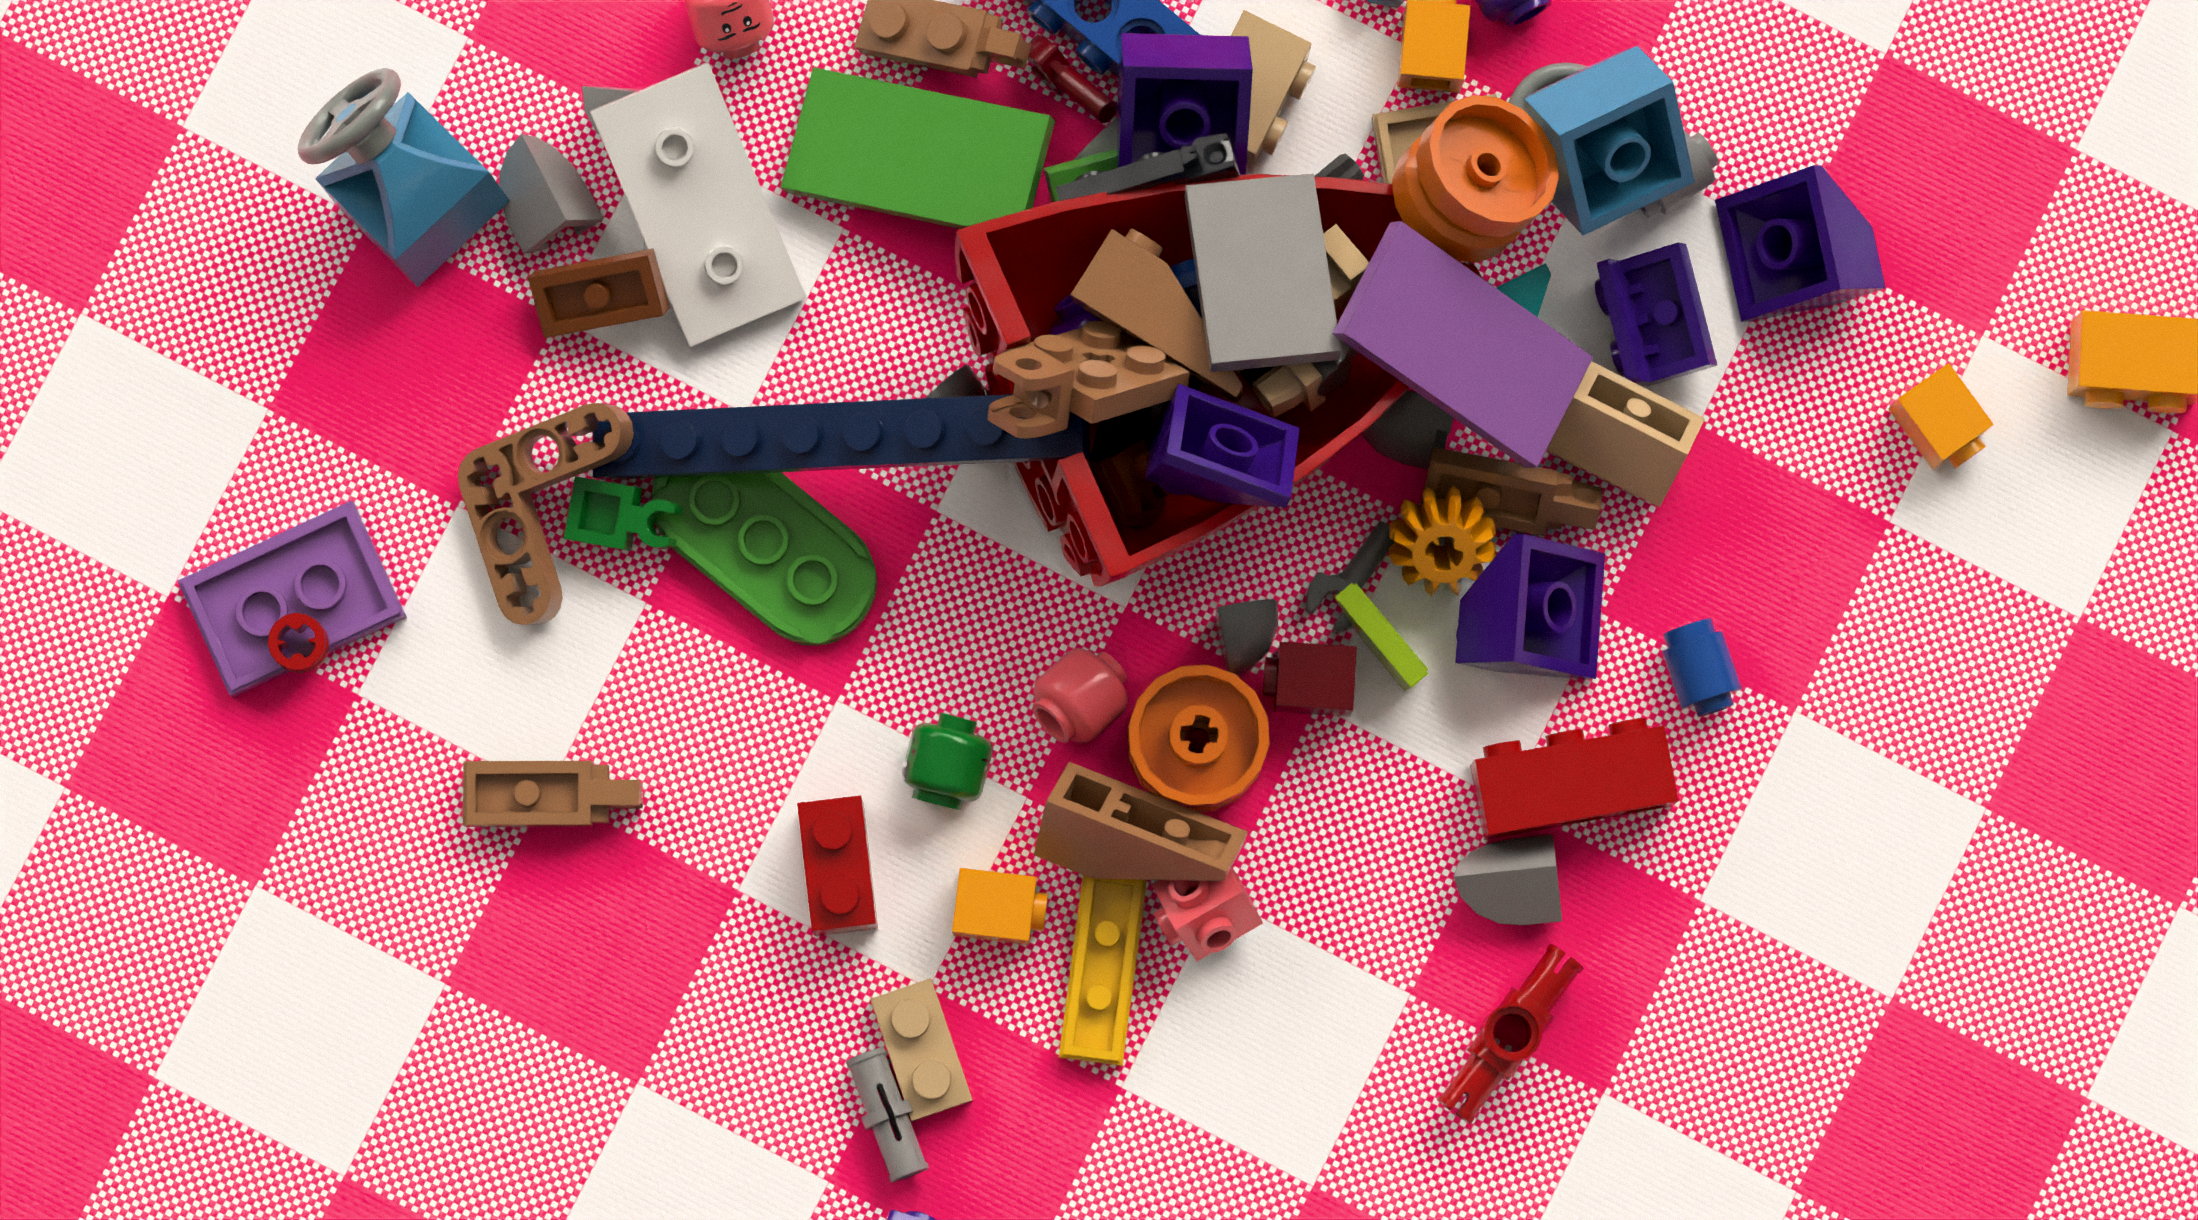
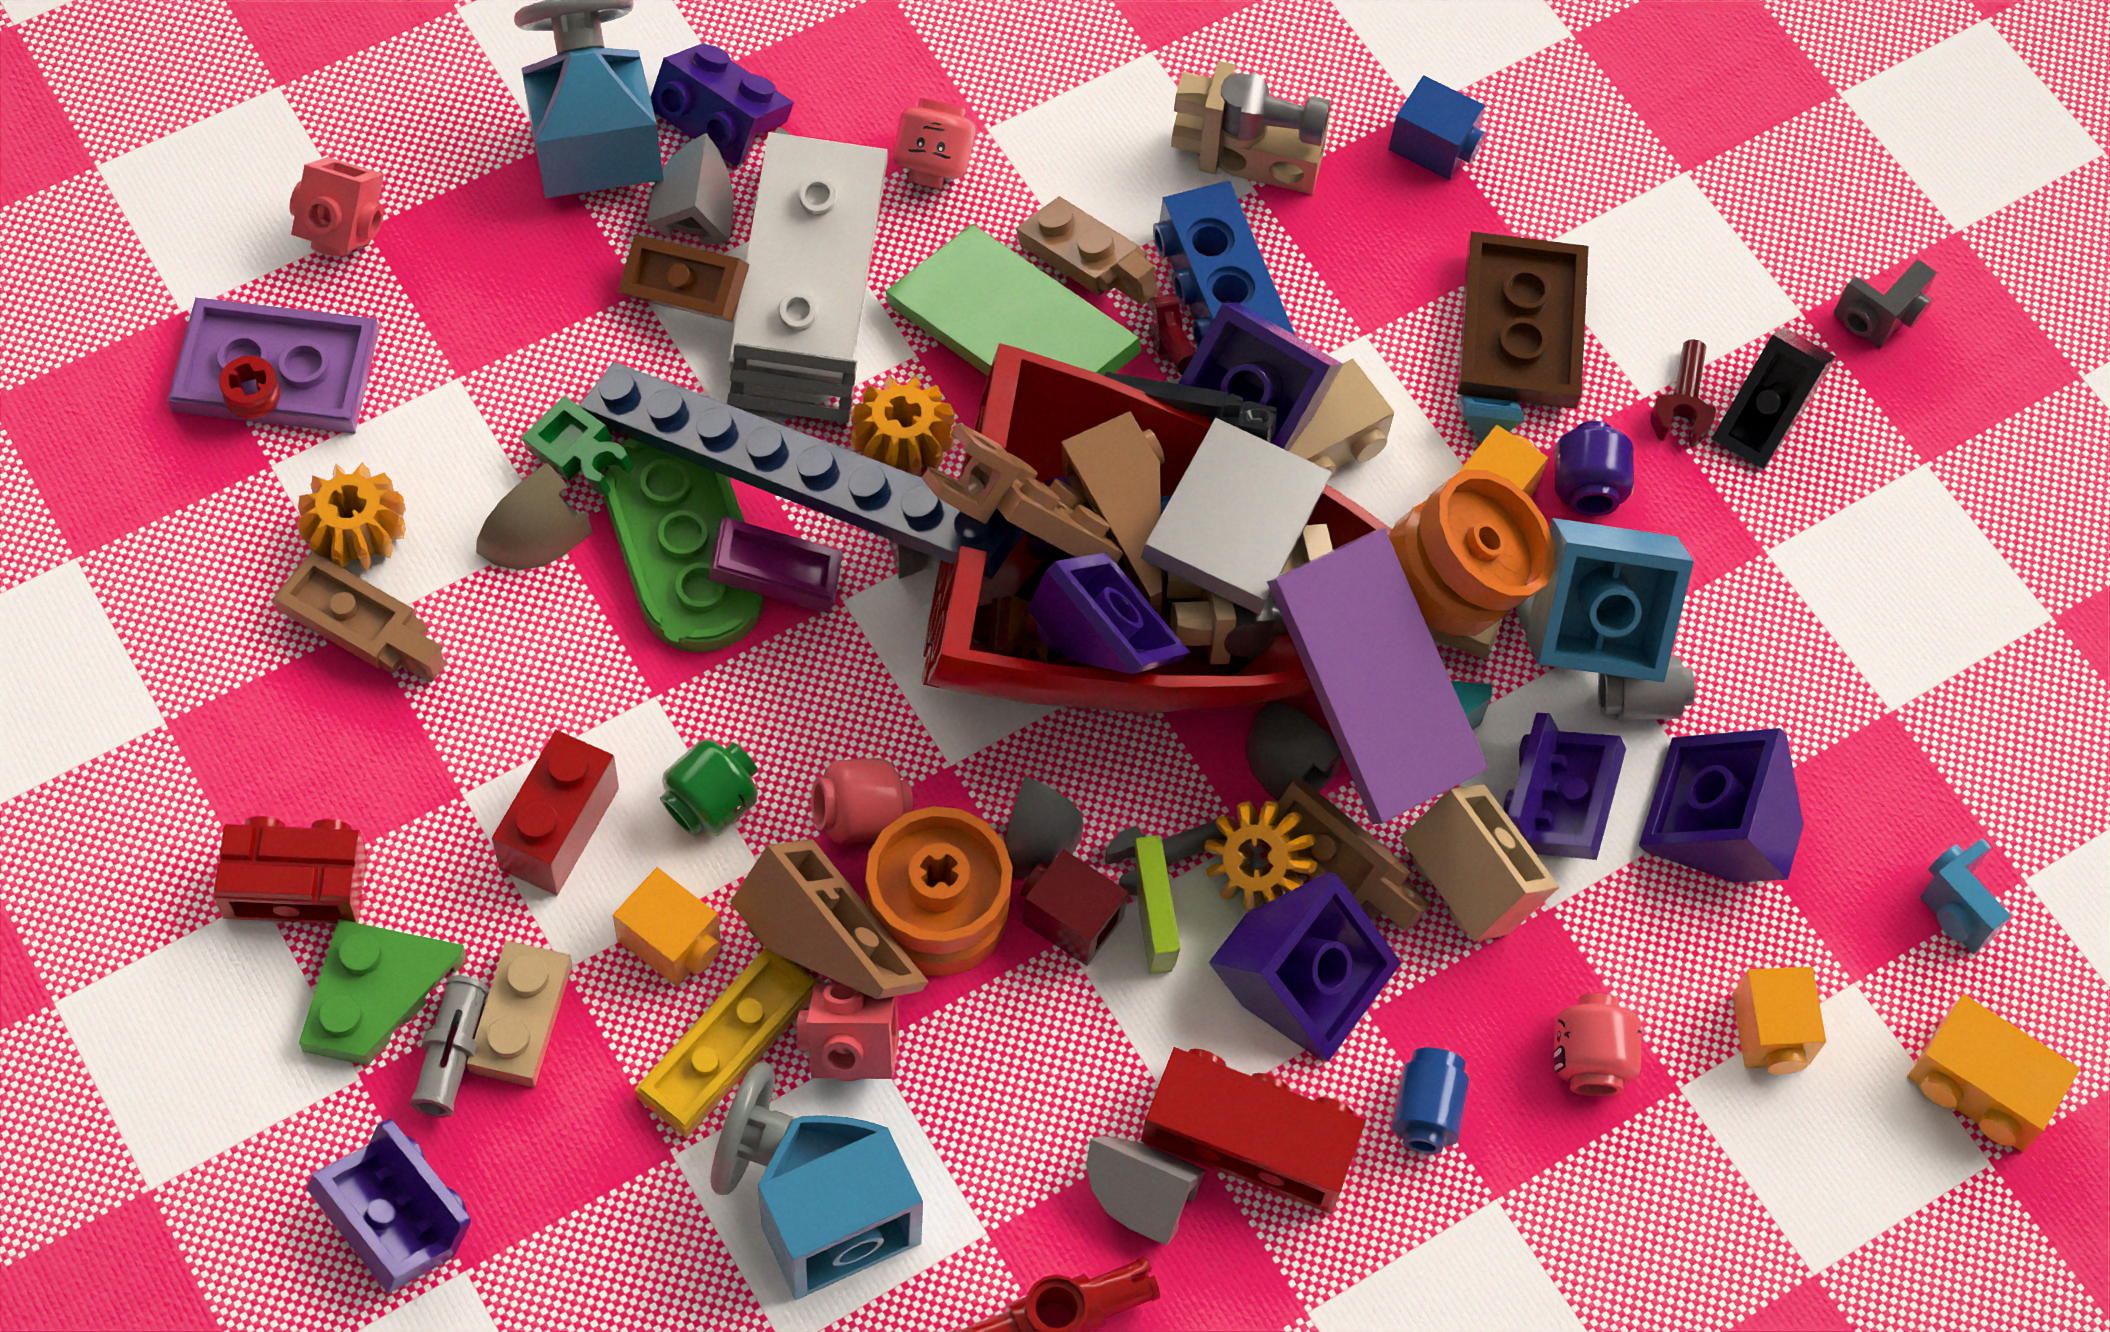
camera: 30 degrees right, 20 degrees down
(243, 417) = (336, 206): none -> coral brick
(485, 688) = (351, 516): none -> light orange gear
(499, 80) = (712, 95): none -> dark purple bracket
(517, 483) = (517, 377): medium nougat beam -> none
(632, 613) = (532, 524): none -> dark tan brick
(656, 1053) = (290, 872): none -> red brick
(766, 343) = (740, 376): none -> dark grey tile
(788, 1104) = (372, 987): none -> bright green wing
(865, 522) = (775, 565): none -> magenta tile
(887, 340) = (903, 425): none -> light orange gear
(1276, 1051) = (830, 1188): none -> dark azure piece
(1808, 534) = (1597, 1045): none -> coral head
(2041, 218) = (1959, 899): none -> dark azure bracket

